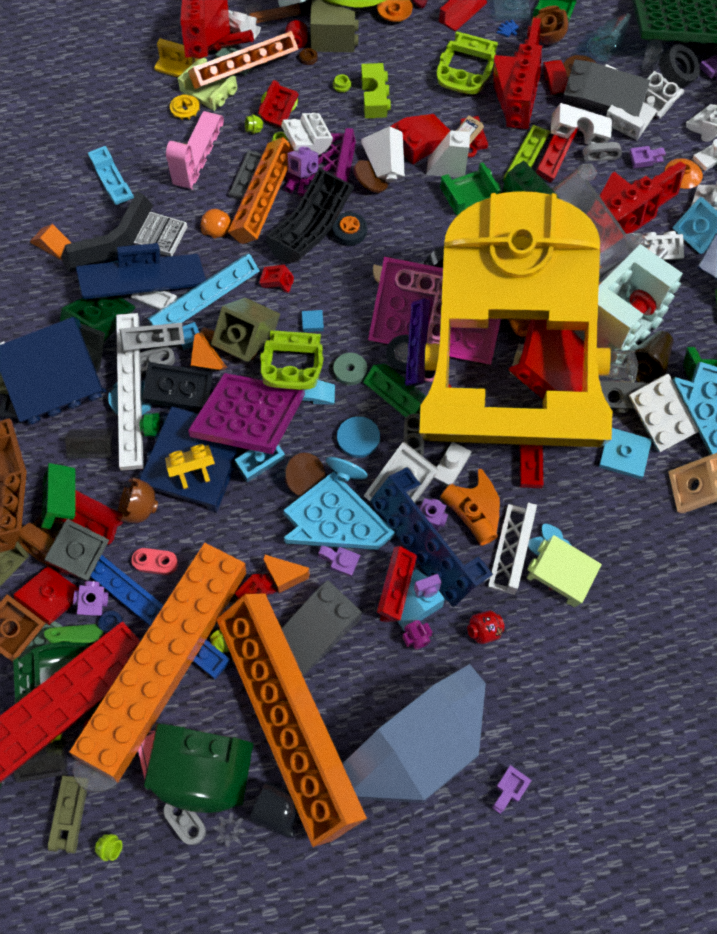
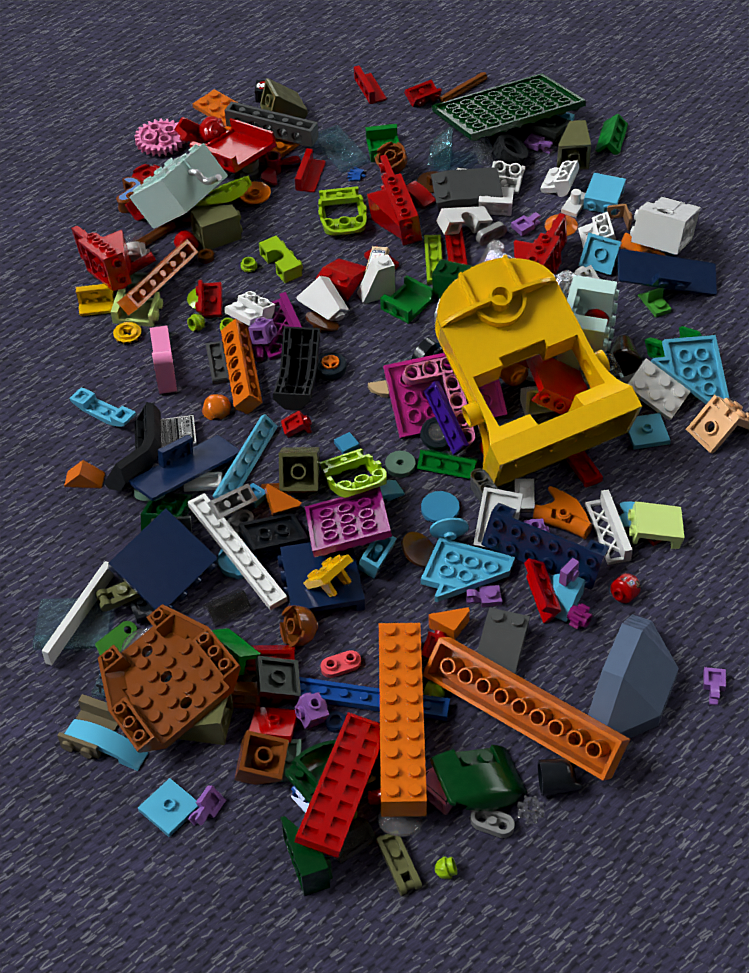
camera: 25 degrees left, 15 degrees down
(74, 634) = (319, 737): bright green piece -> none
(150, 424) = (272, 566): green plate -> none

